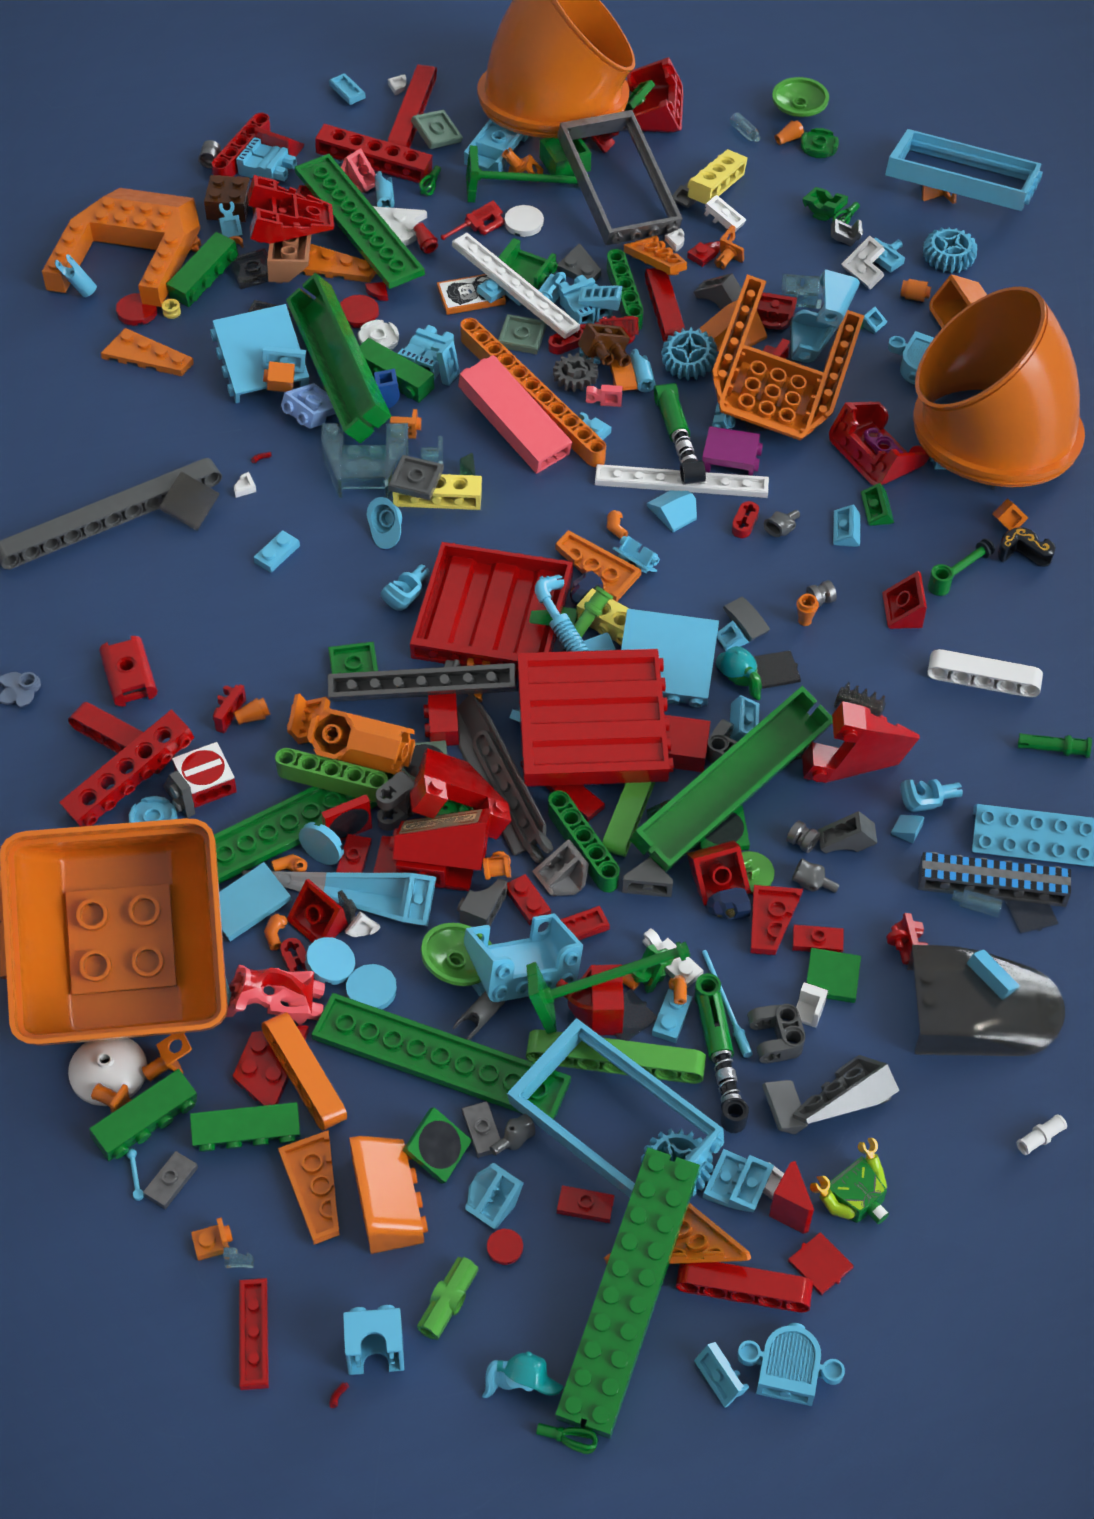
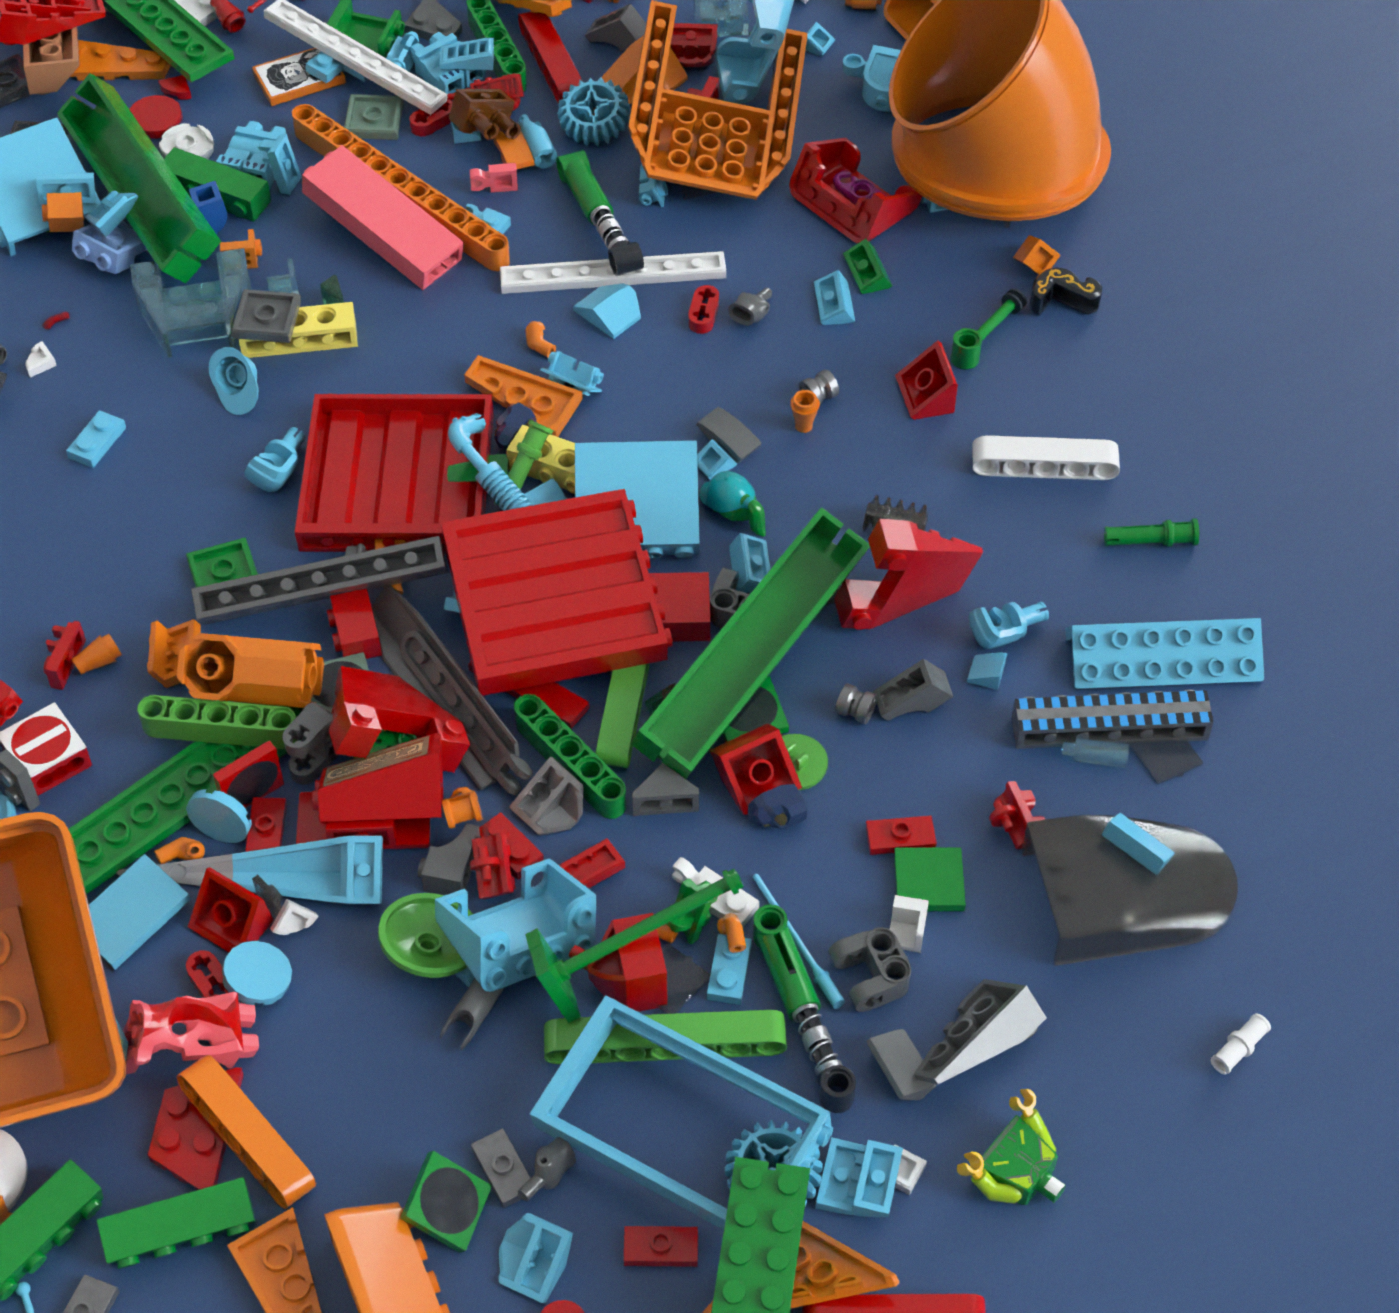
camera: 10 degrees left, 0 degrees up
(167, 1058) = (53, 1146): orange bracket -> none
(271, 930) = (170, 942): orange arm -> none
(314, 381) = (111, 211): none -> medium azure slope
(372, 986) = (319, 1000): medium azure tile -> none
(432, 1054) = (417, 1077): green plate -> none
(512, 912) = (492, 866): none -> red hips
(575, 372) = (451, 154): dark grey gear -> none
(732, 449) = (671, 223): magenta panel -> none
(771, 916) = (834, 815): red wing -> none
(777, 669) = (781, 493): clear smoke piece -> none
(791, 1201) = (937, 1193): red slope -> none
(812, 877) = (878, 754): dark grey piece -> none
(821, 1263) = (988, 1269): red piece -> none

